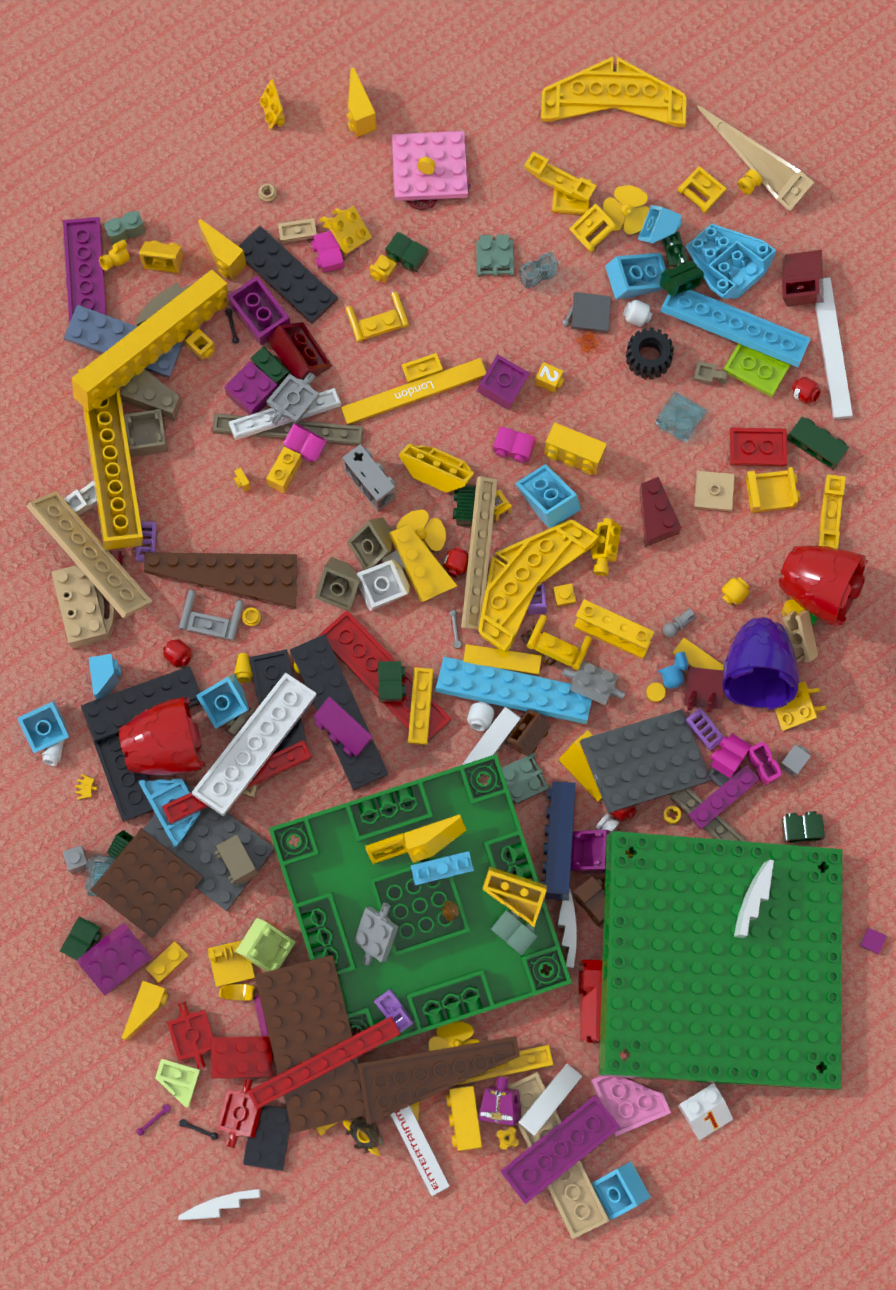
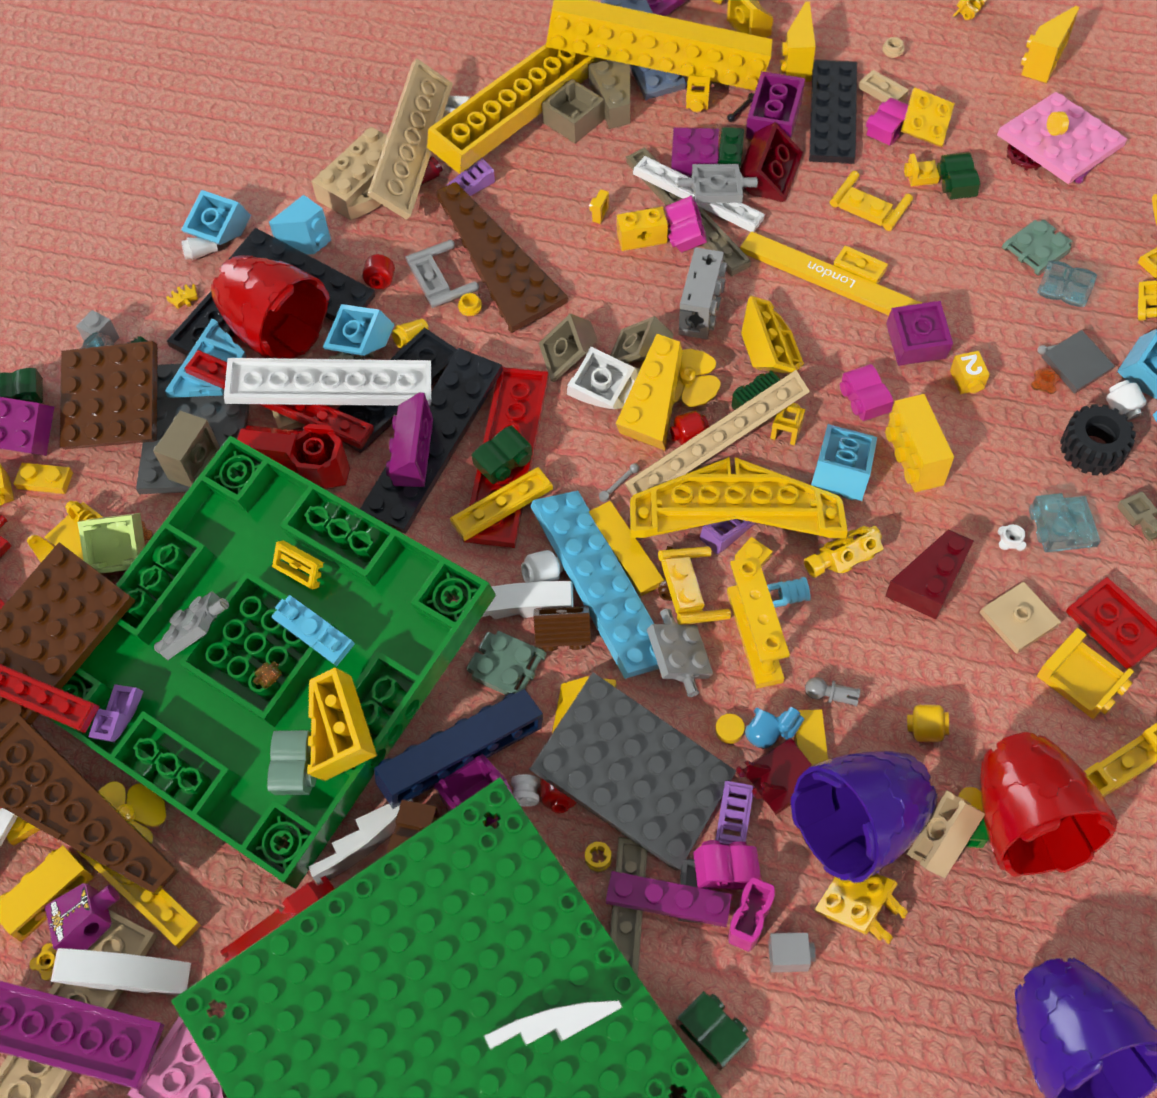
camera: 55 degrees right, 15 degrees down
(289, 800) = (310, 453): none -> red brick
(430, 839) = (338, 593): yellow slope -> none
(604, 594) = (790, 591): none -> medium azure hinge
(667, 447) = (1012, 531): none -> white plate

